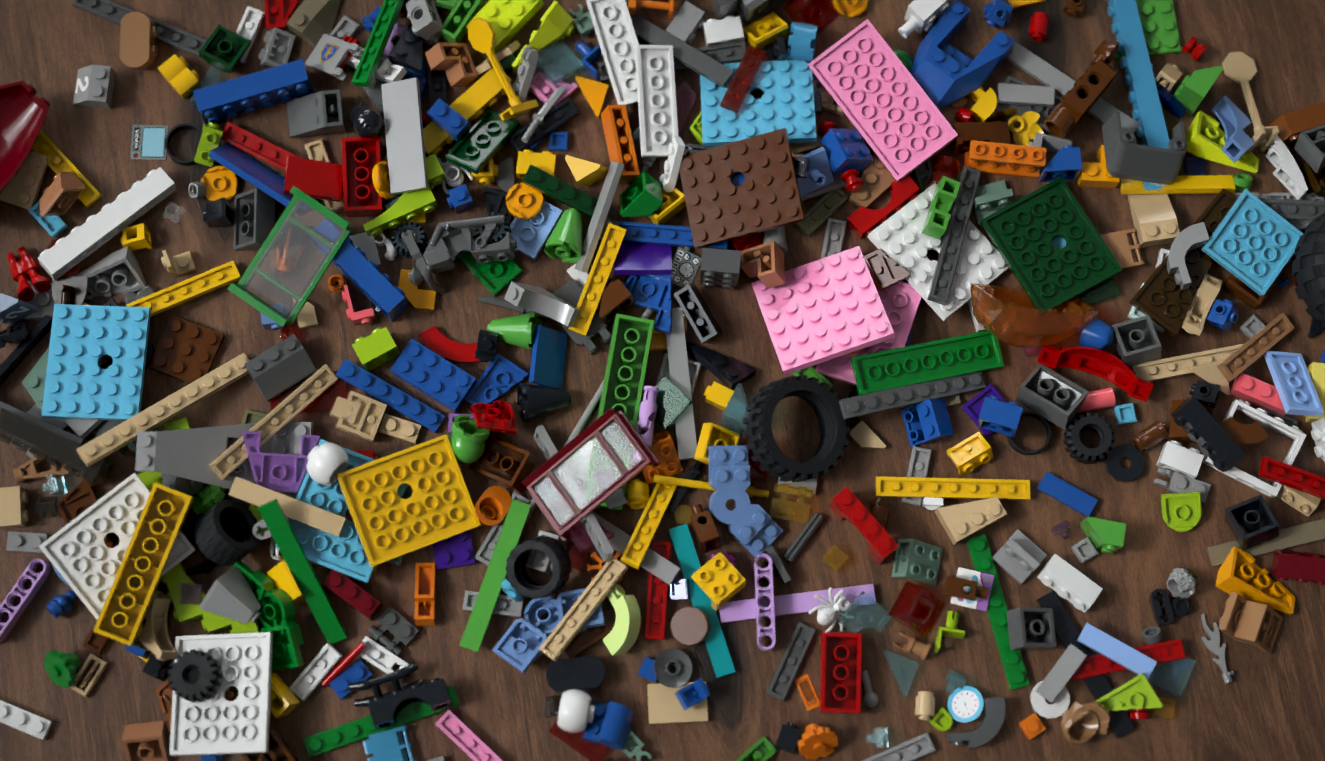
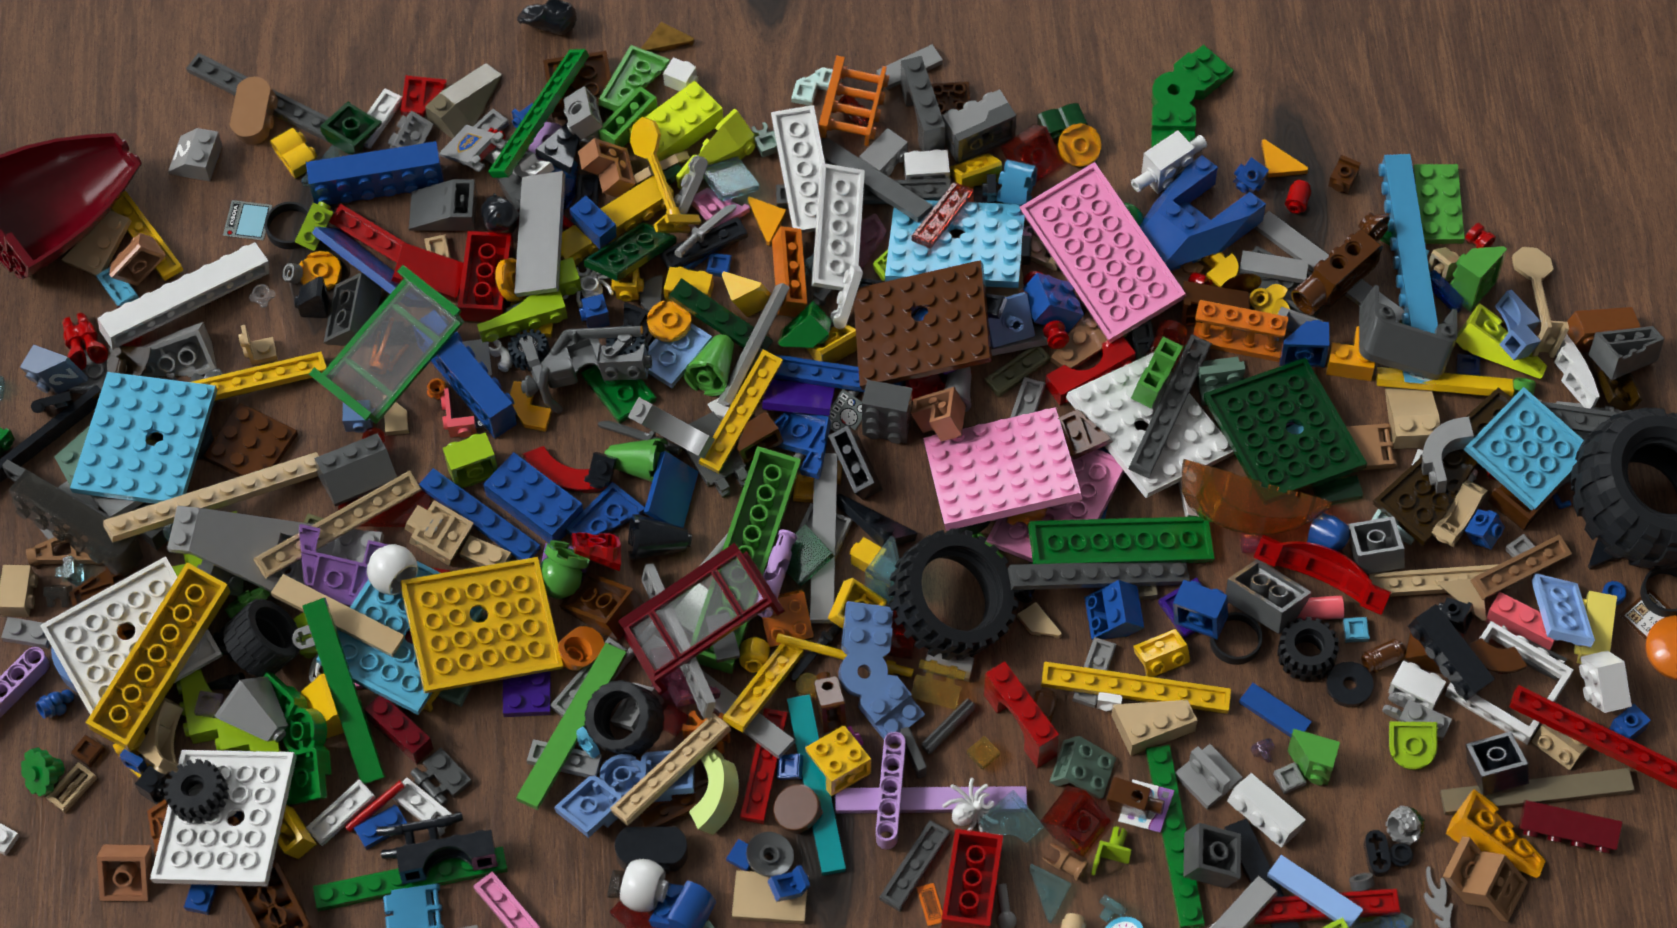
camera: 10 degrees right, 15 degrees down
(136, 237) = (215, 315): yellow brick -> none
(425, 594) = (485, 740): orange slope -> none
(590, 56) = (768, 179): blue bracket -> none

